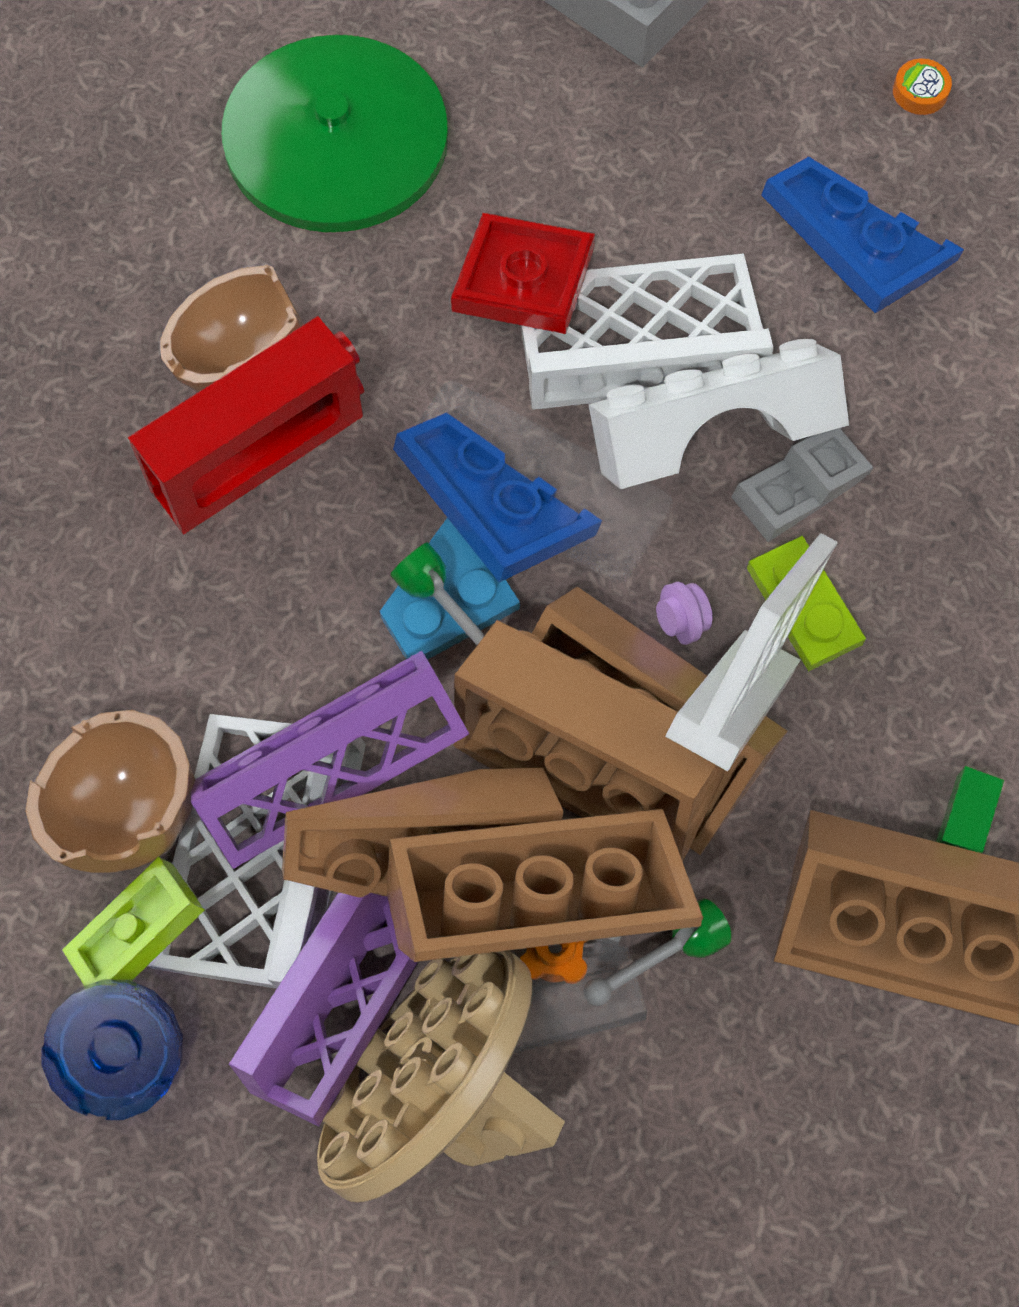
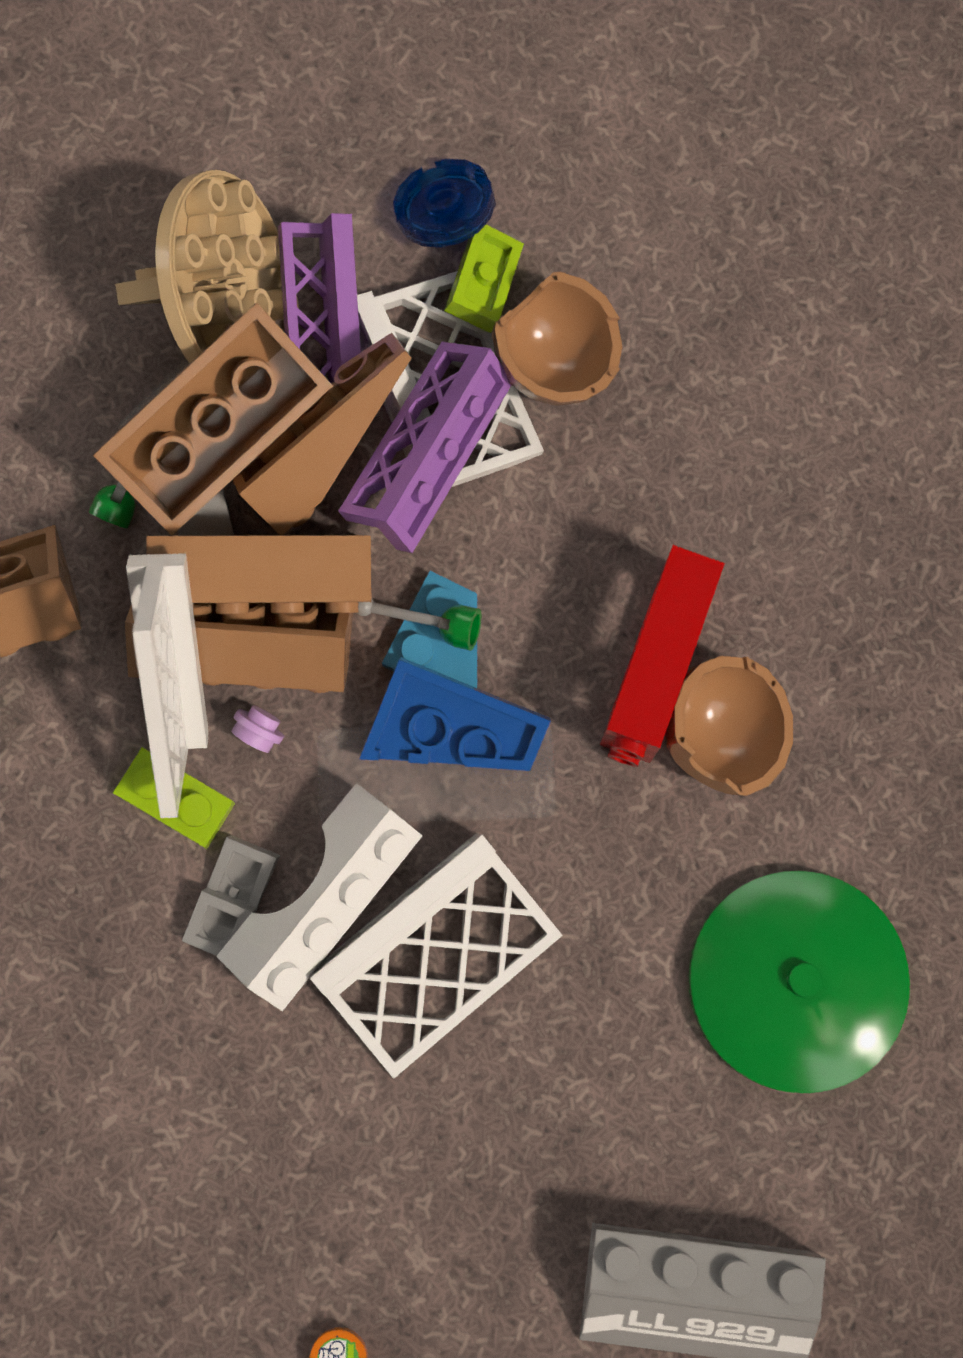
camera: 145 degrees right, 10 degrees up
(523, 273) = (555, 939): red tile -> none
(860, 242) = (309, 1155): blue wing -> none

